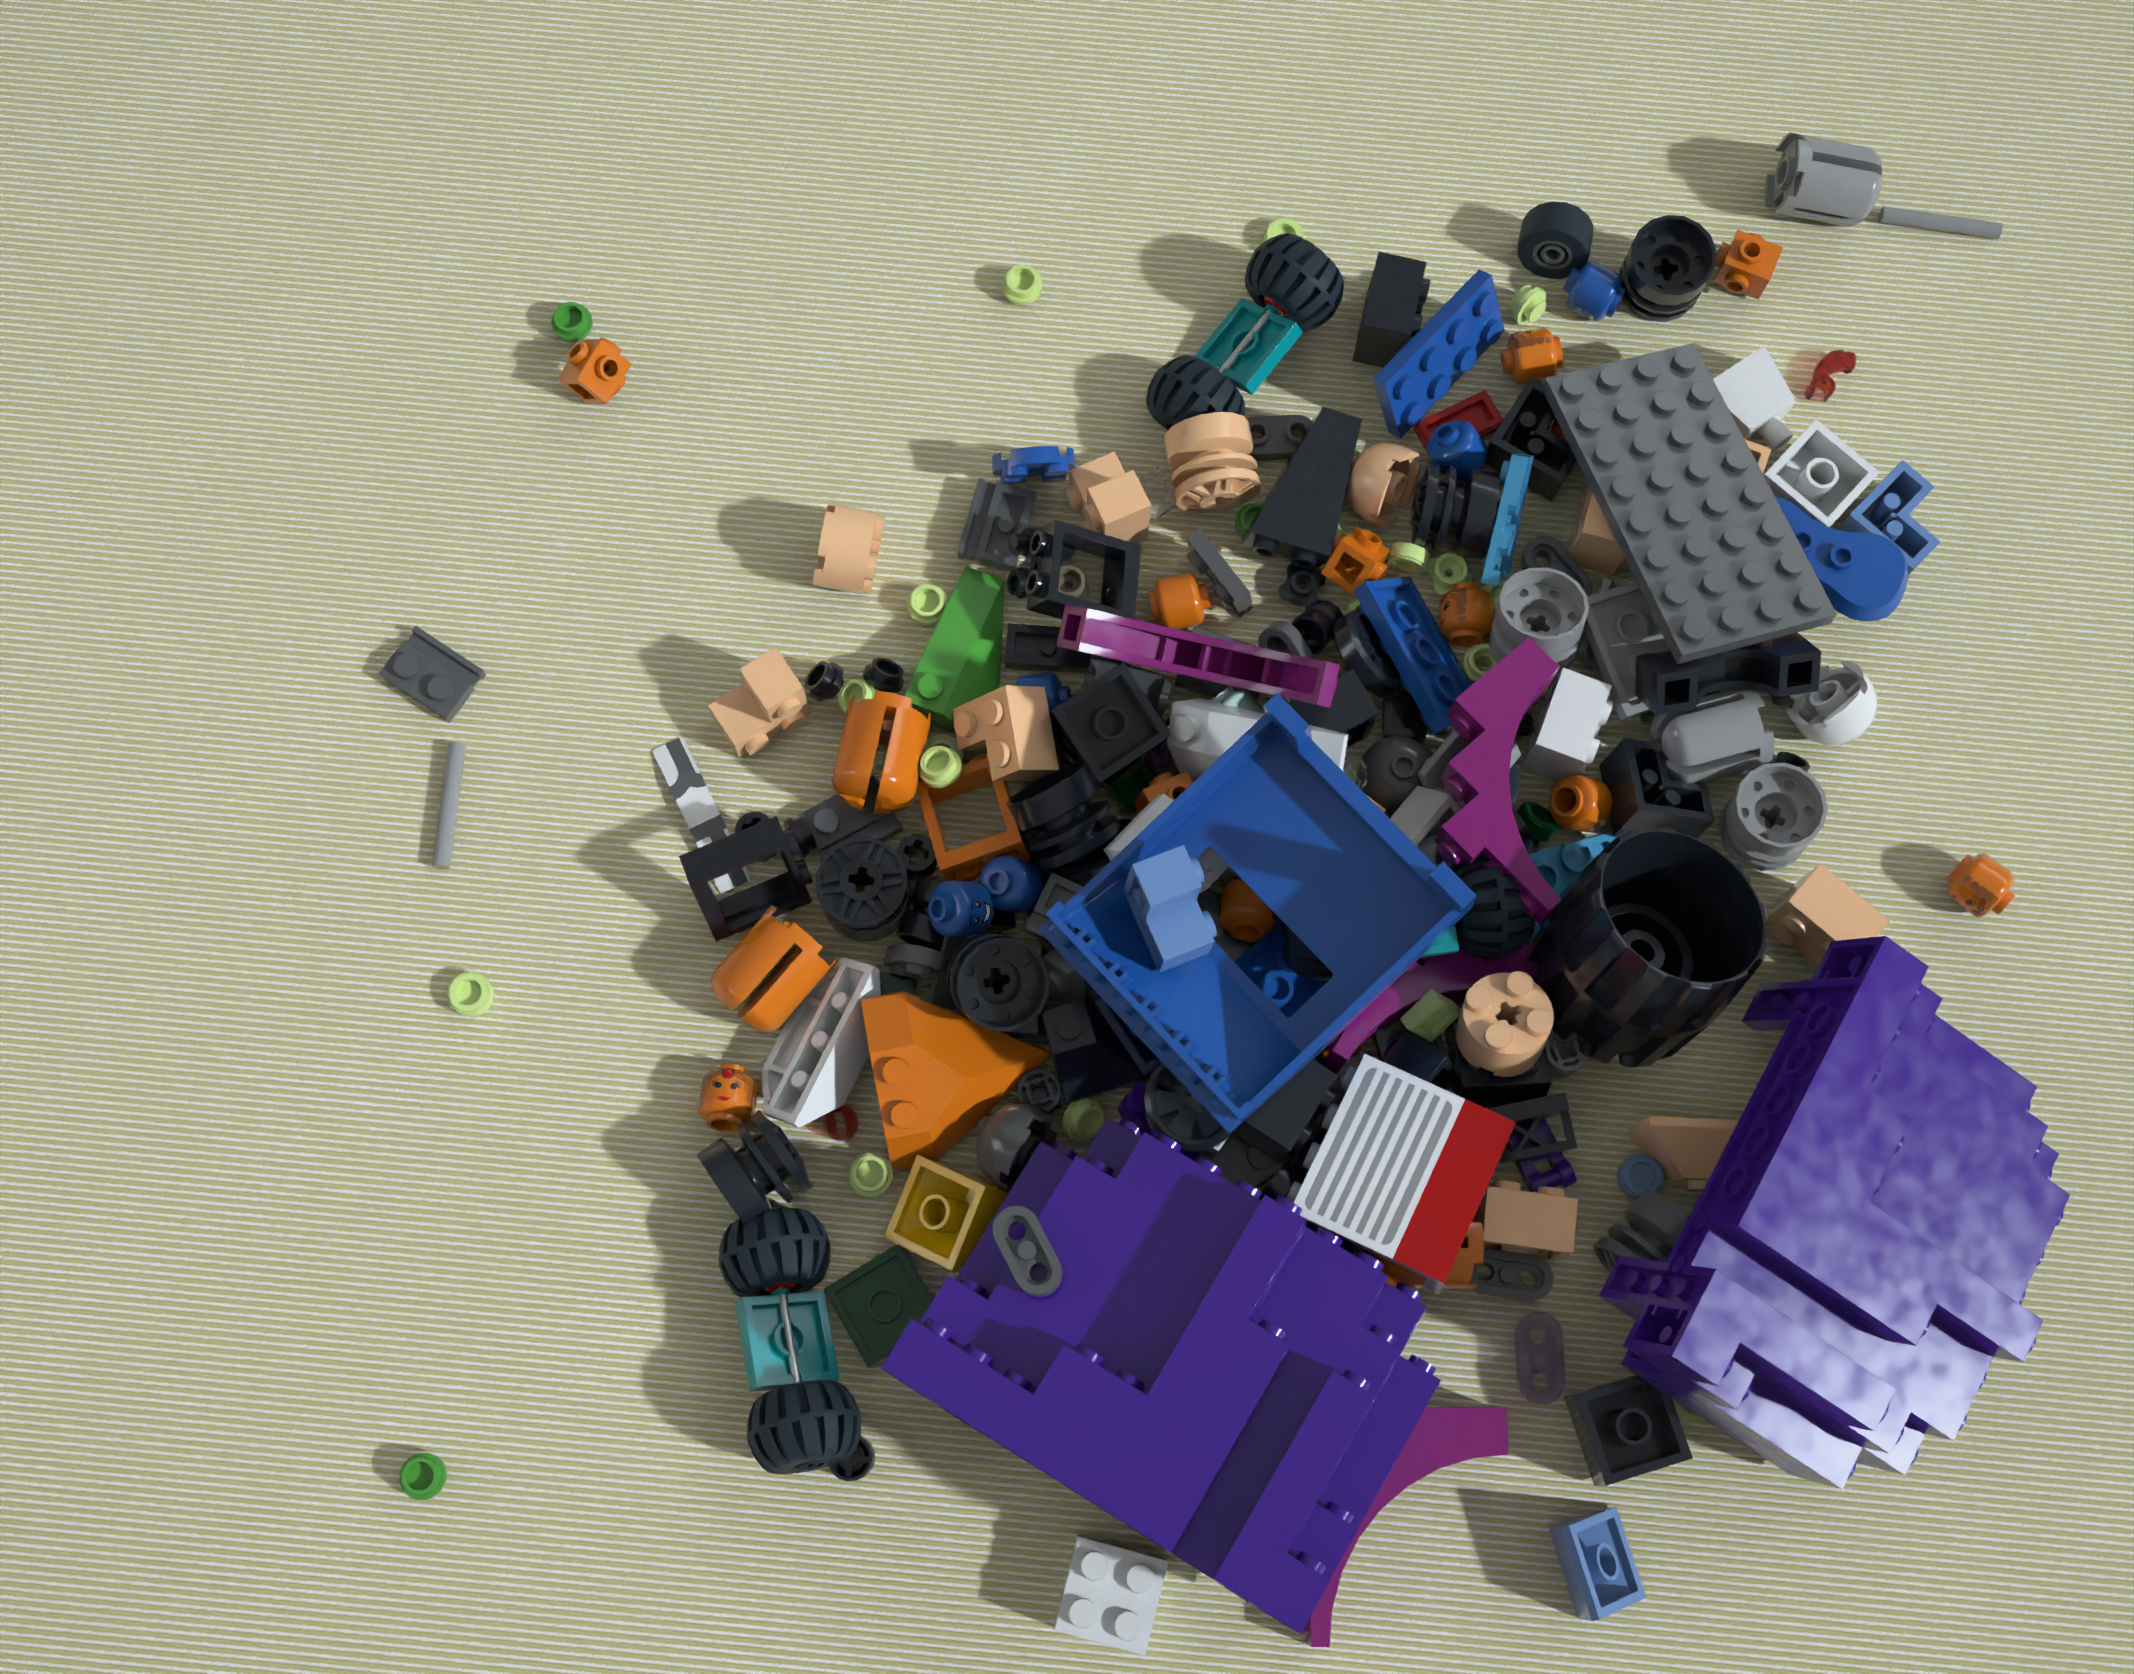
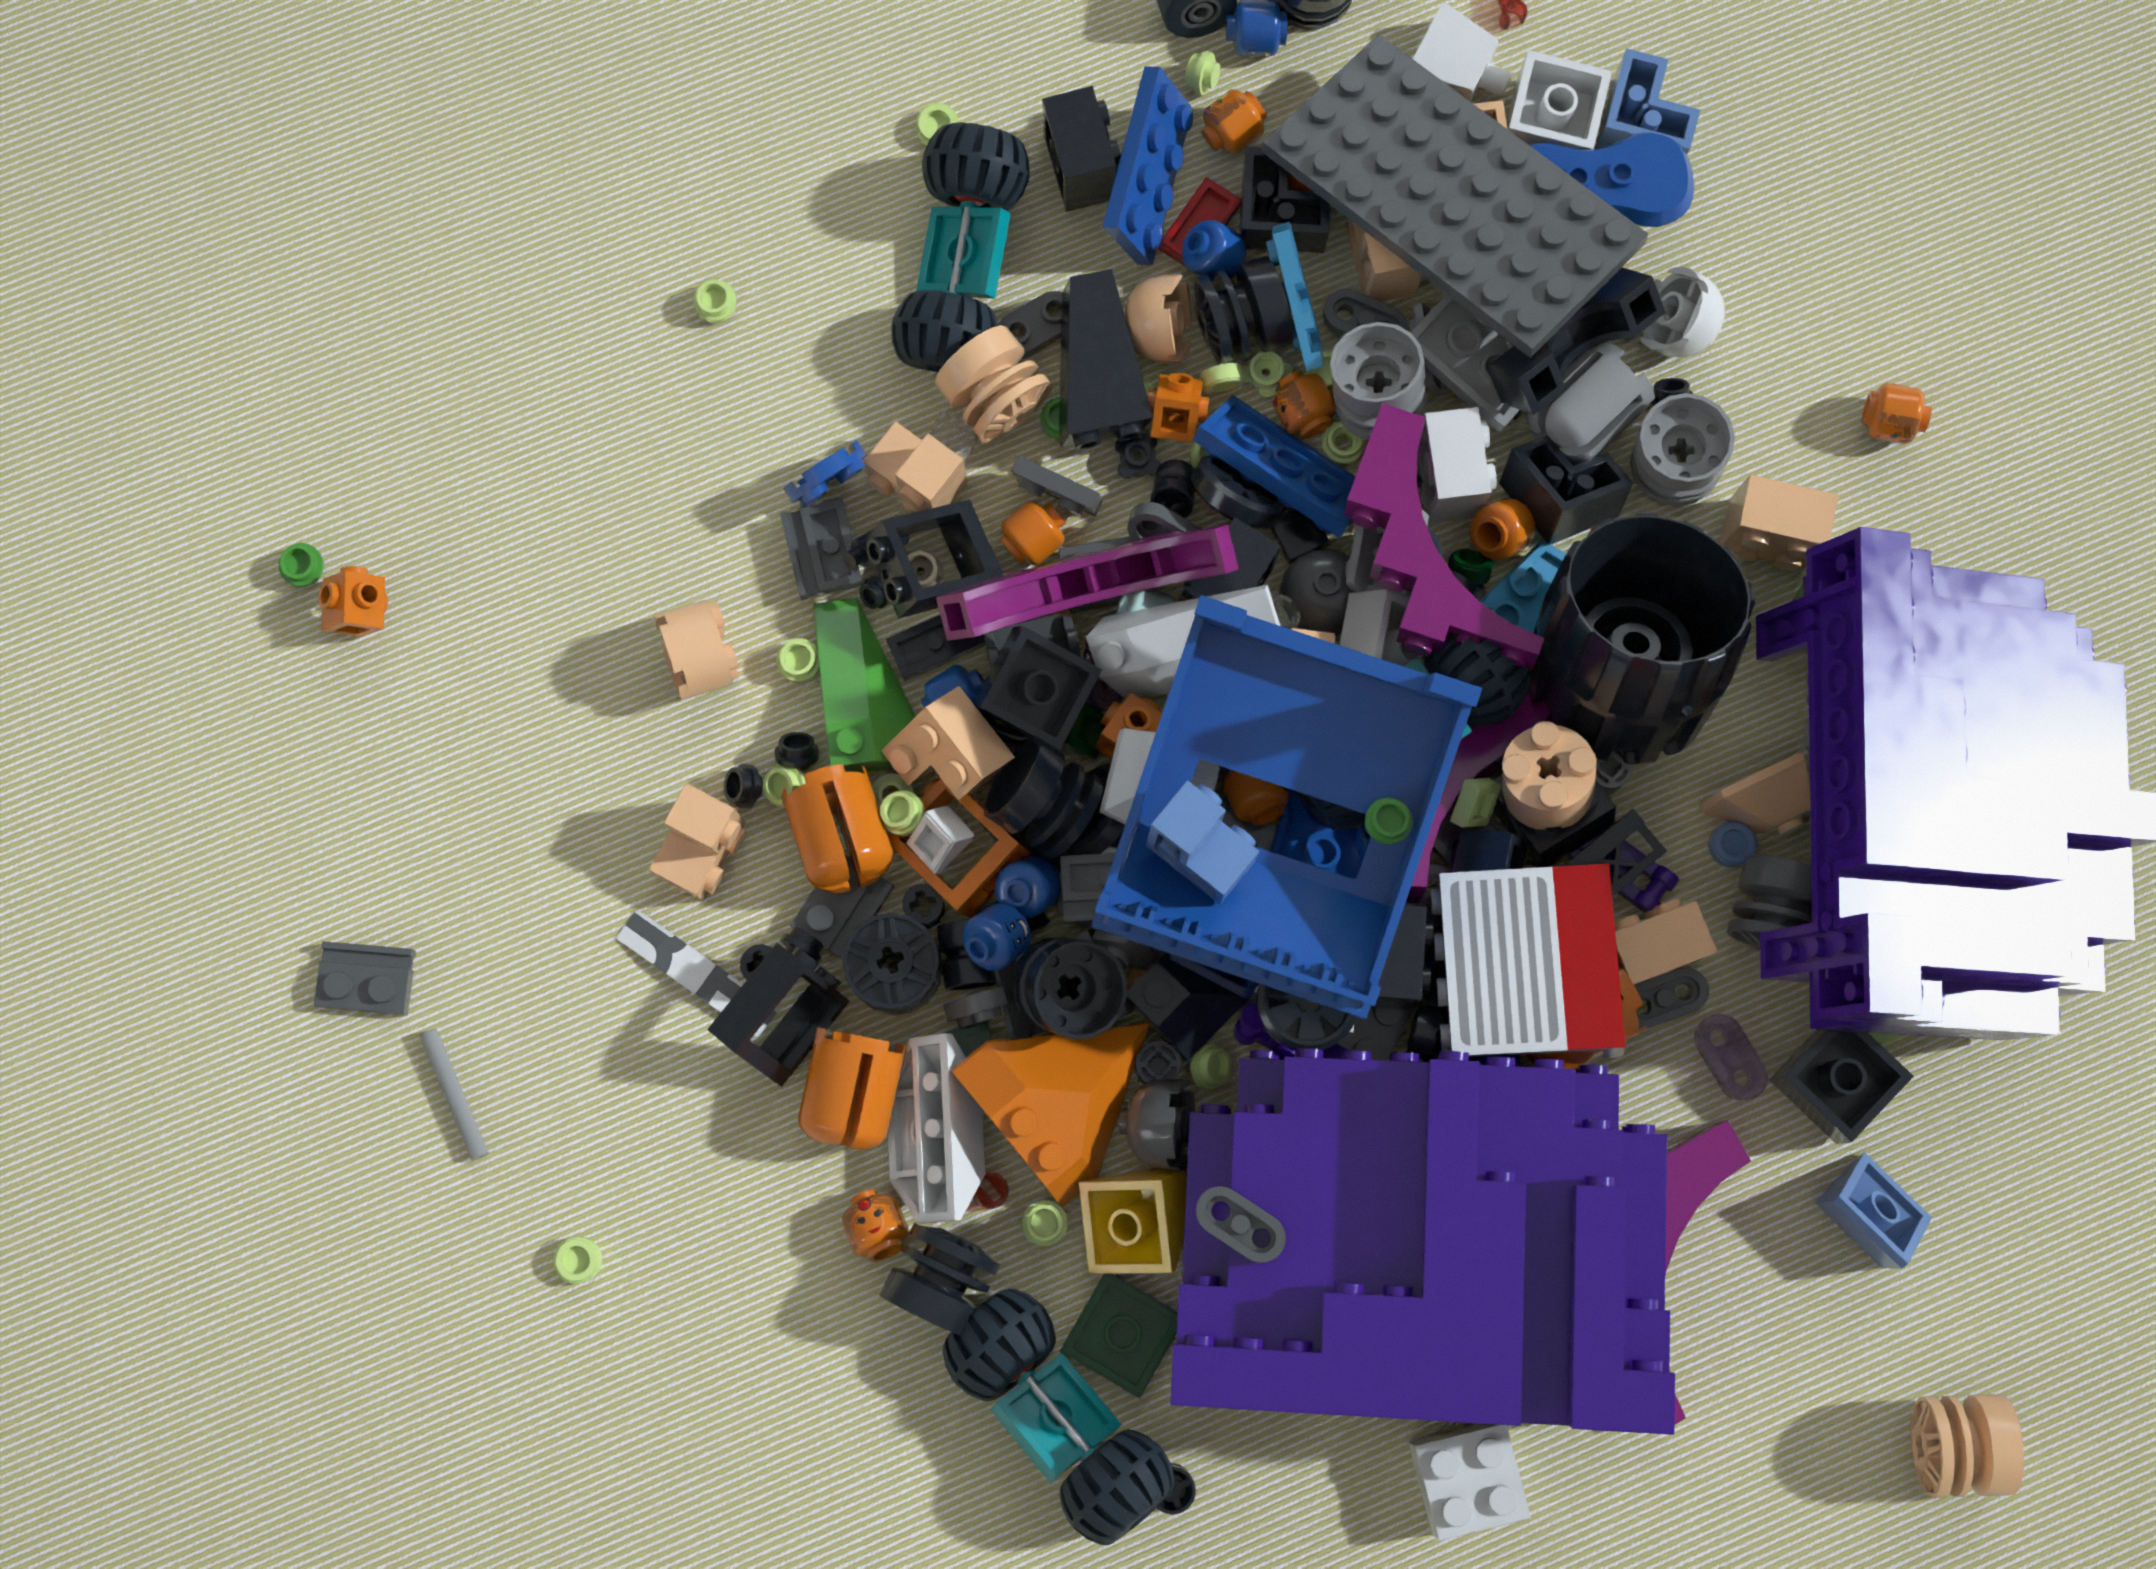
camera: 25 degrees left, 5 degrees up
(959, 803) = (939, 838): none -> white slope
(1341, 979) = (1388, 821): none -> bright green plate

